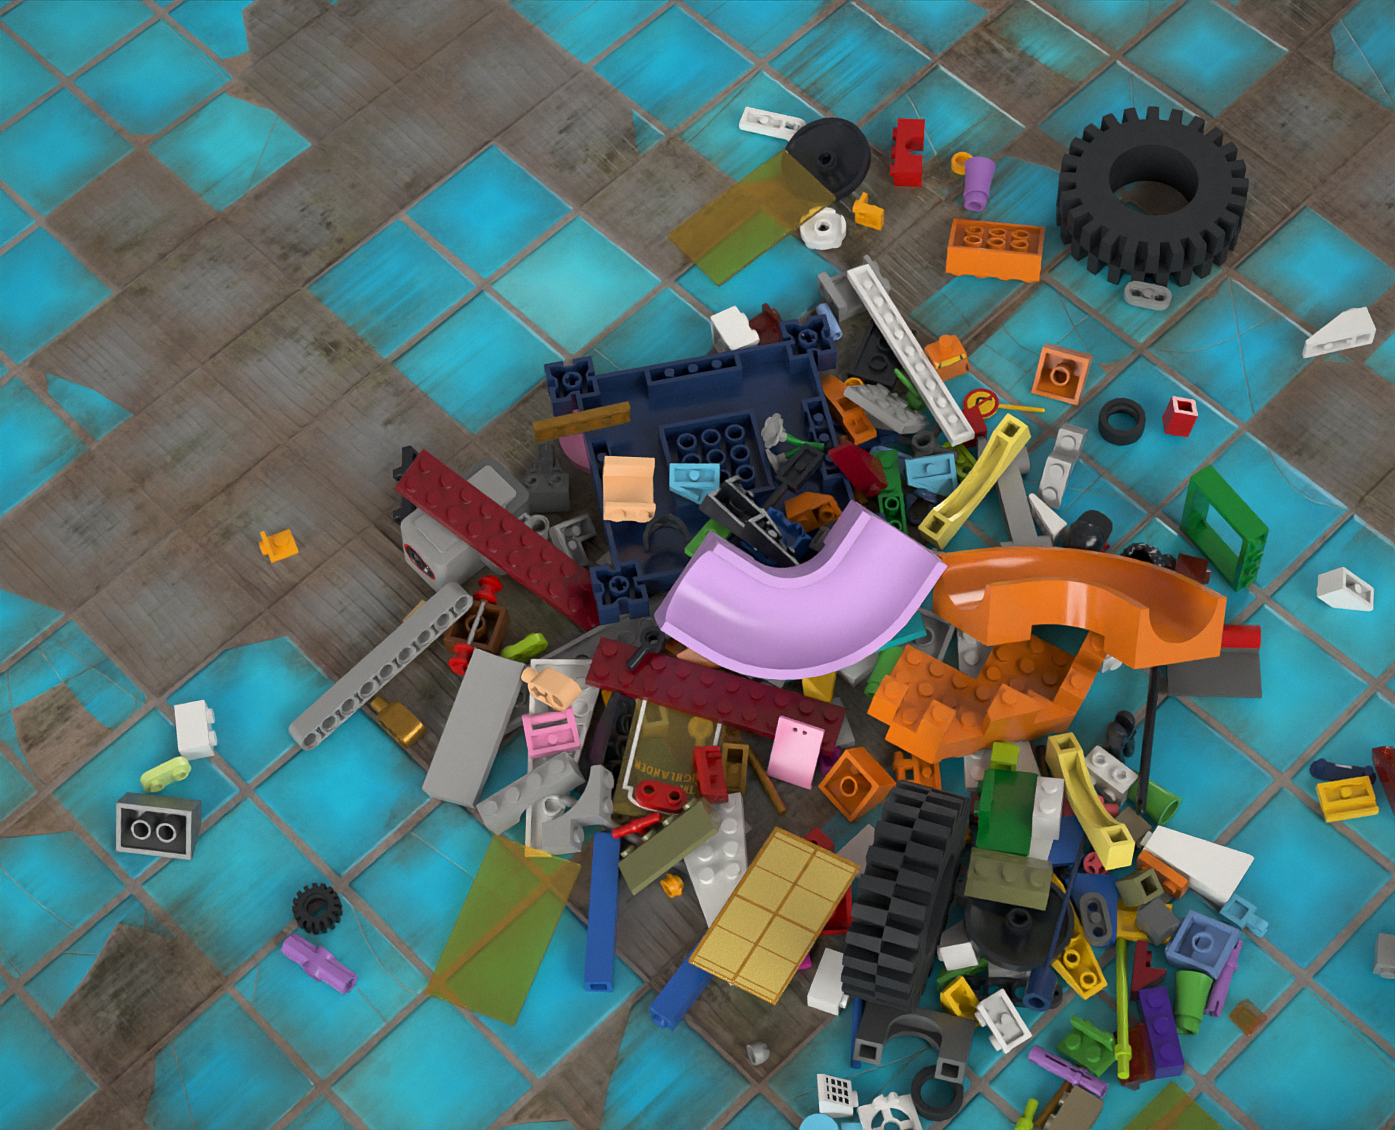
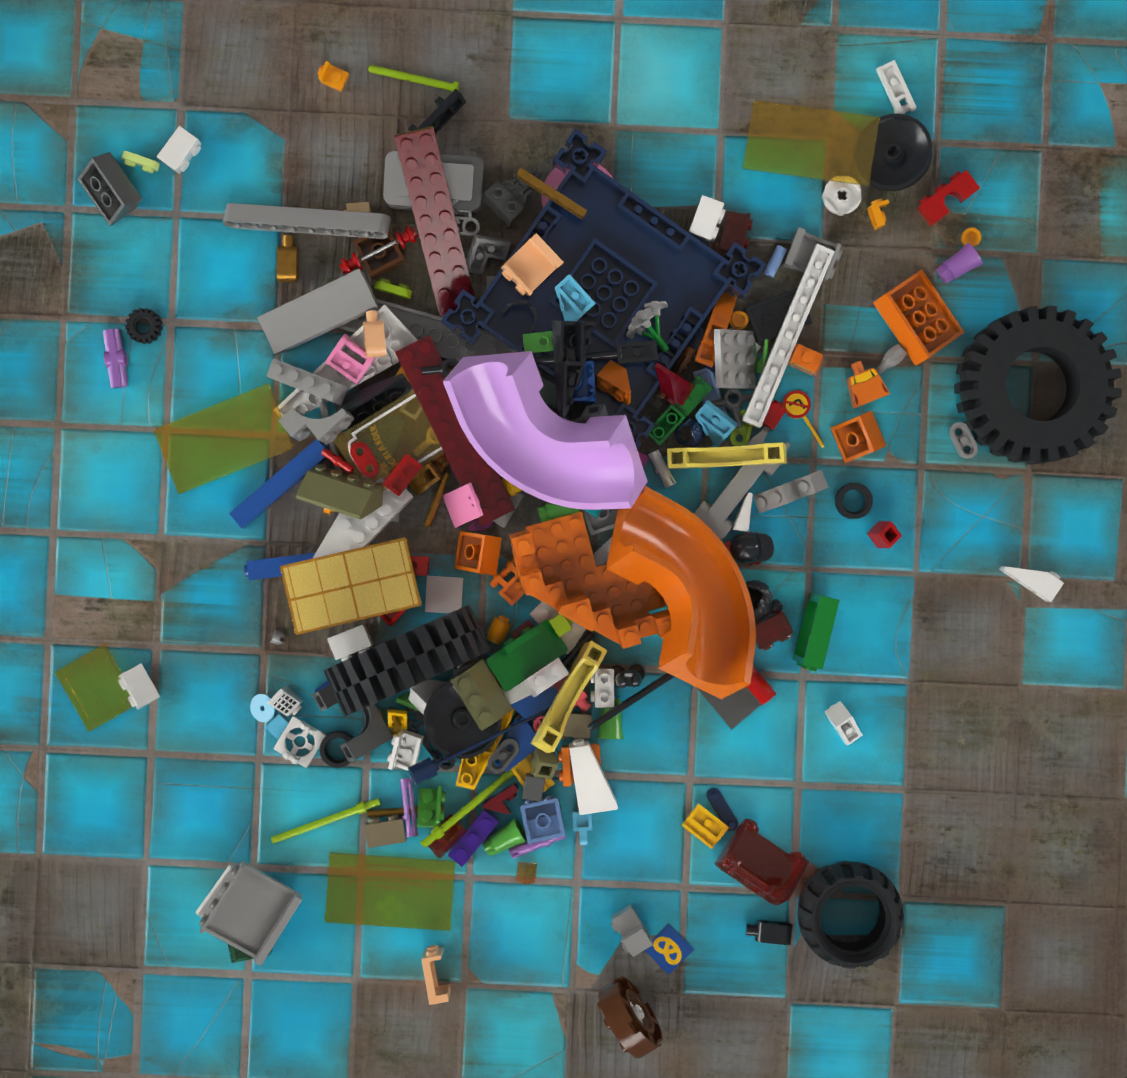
camera: 40 degrees right, 30 degrees up
(354, 480) = (414, 78): none -> lime bar
(1013, 295) = (891, 358): none -> light grey piece
(1018, 333) = (865, 385): none -> orange torso

